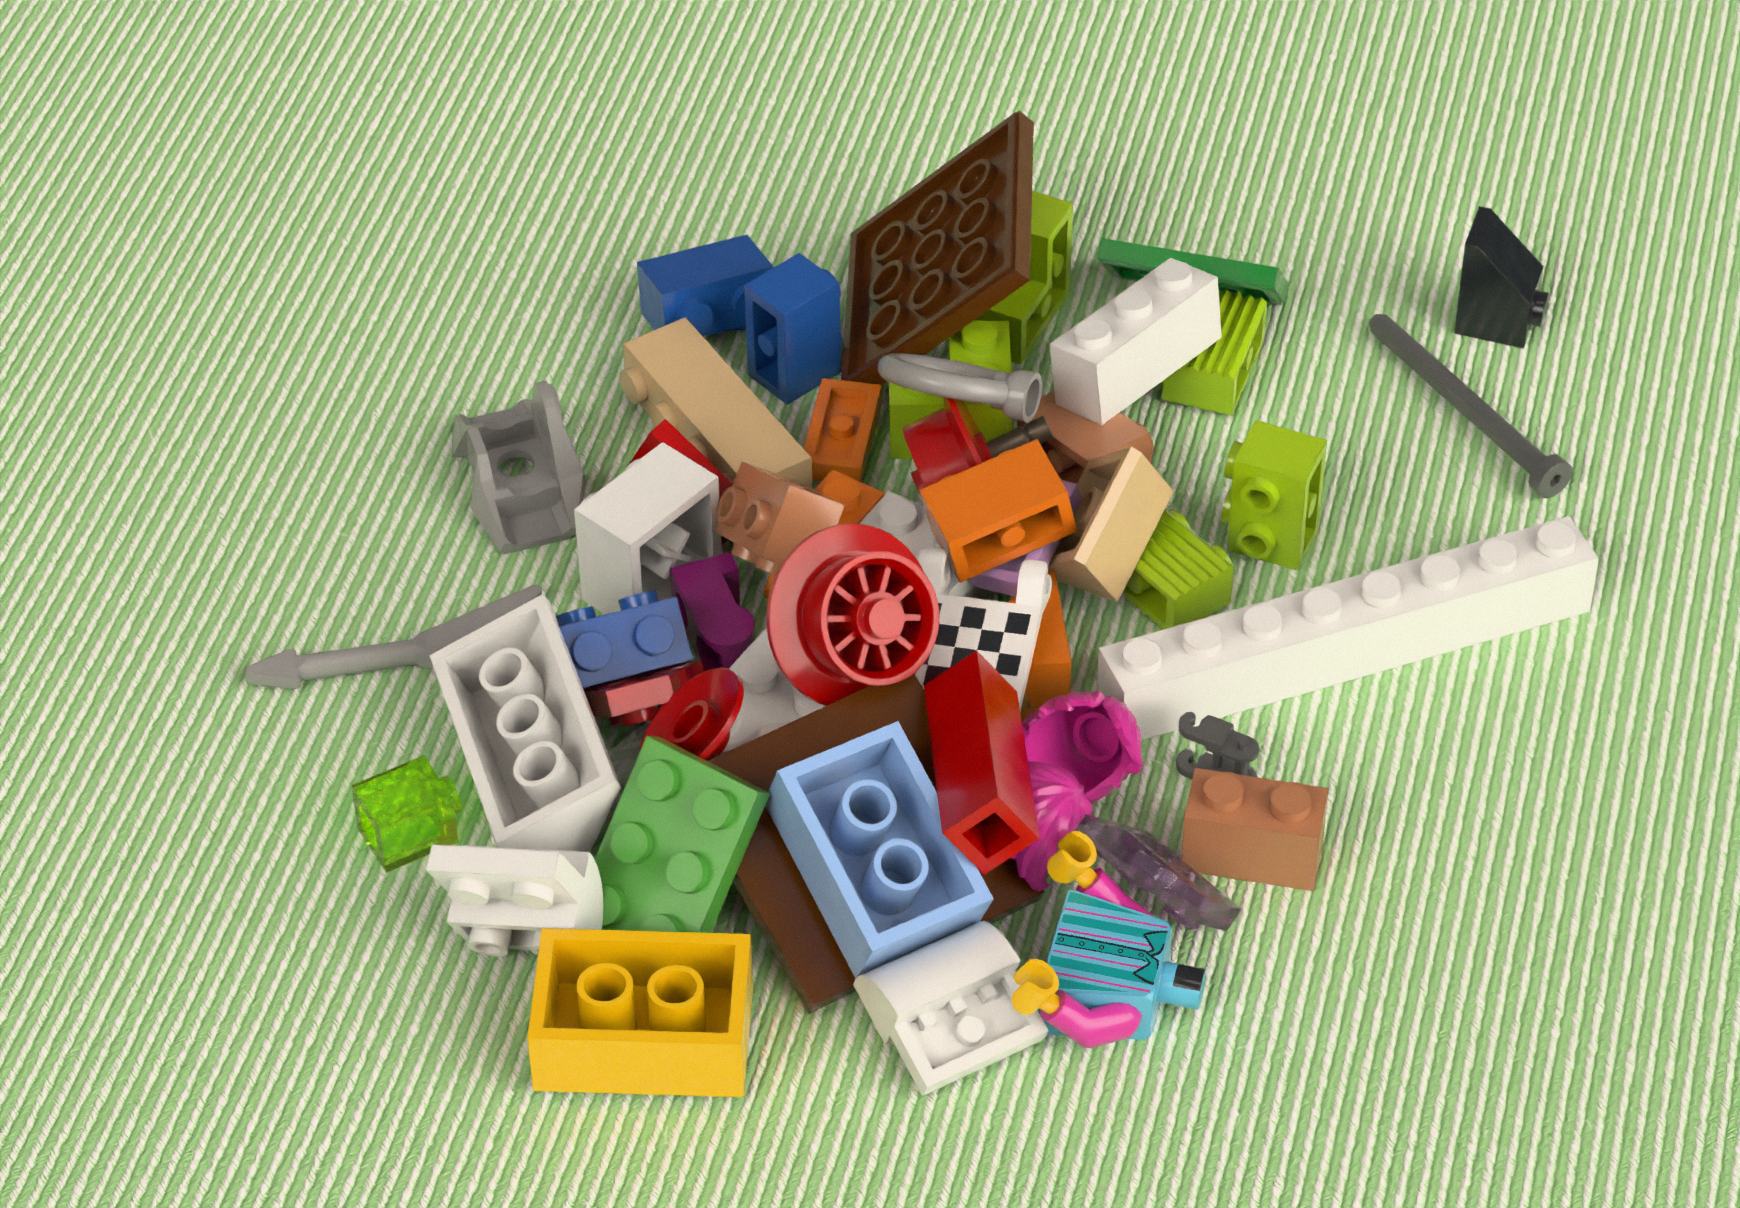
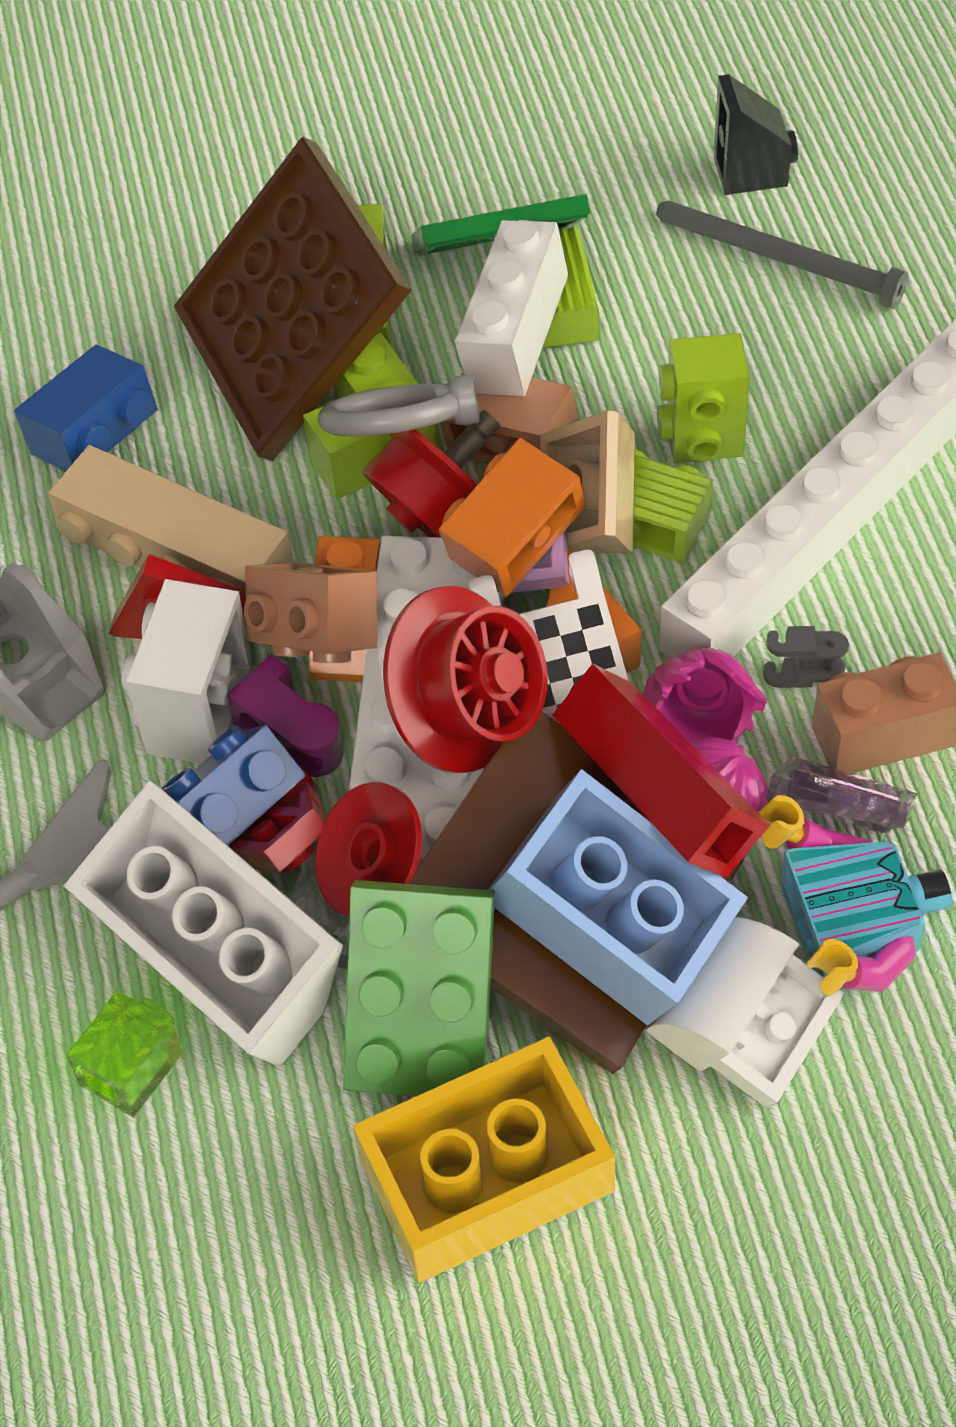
camera: 25 degrees left, 10 degrees up
(511, 893) = (302, 1096): white brick -> none
(793, 328) = (192, 414): blue brick -> none
(843, 427) = (286, 490): orange plate -> none

